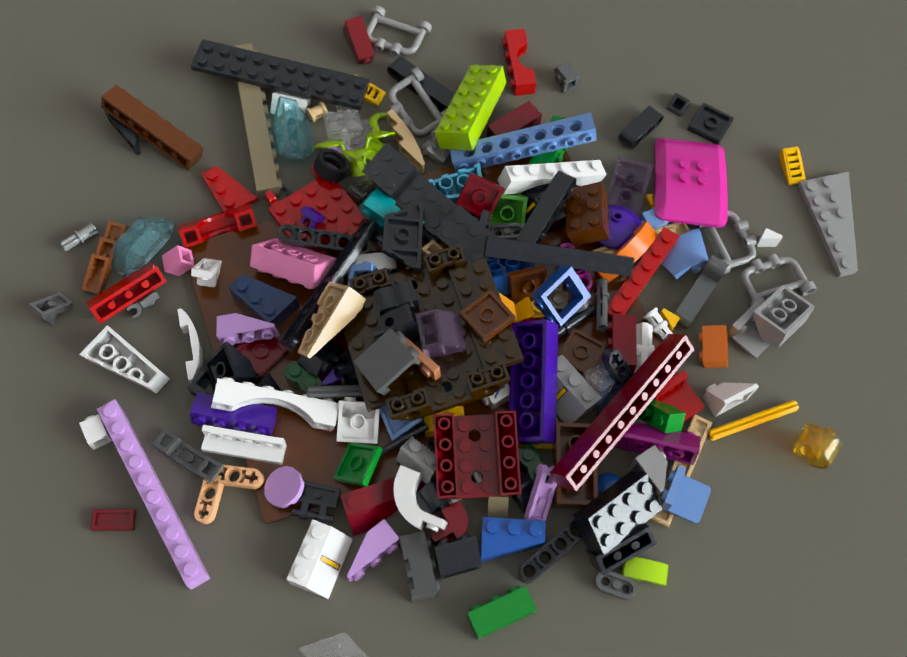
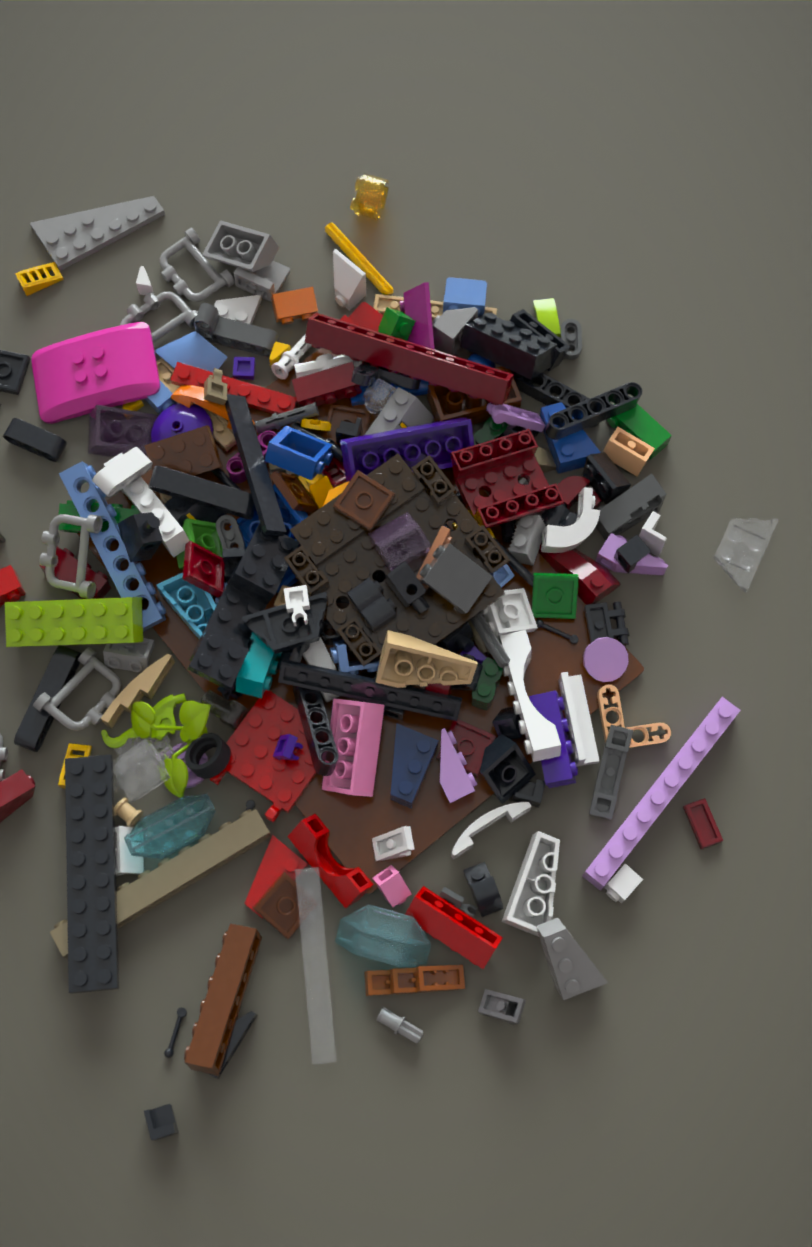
camera: 105 degrees left, 5 degrees up
(53, 360) = (568, 963): none -> light grey wedge
(96, 77) = (161, 1122): none -> black panel
(142, 324) = (483, 889): none -> black brick
(149, 195) = (315, 966): none -> clear tile
(163, 110) = (181, 1012): none -> black hinge
(200, 189) = (280, 906): none -> reddish brown tile
(317, 470) = (573, 639): none -> black hinge
(319, 559) = (658, 605): white slope -> none
(367, 542) = (631, 553): none -> black panel
(386, 570) = (651, 538): none -> white panel
(417, 241) = (297, 601): none -> white plate
(476, 588) = (628, 451): none -> light nougat brick
(520, 155) = (141, 536): none -> black torso
(523, 552) = (587, 417): none -> black beam
(539, 124) = (52, 538): none -> light grey bar
(571, 347) = (348, 430): none -> black panel
(579, 157) = (122, 471): none -> white beam
(588, 324) = (316, 424): none -> yellow tile
(640, 249) = (215, 389): none -> dark tan plate
(662, 289) = (244, 368): none -> dark purple tile
(722, 303) = (239, 309): none -> white wing

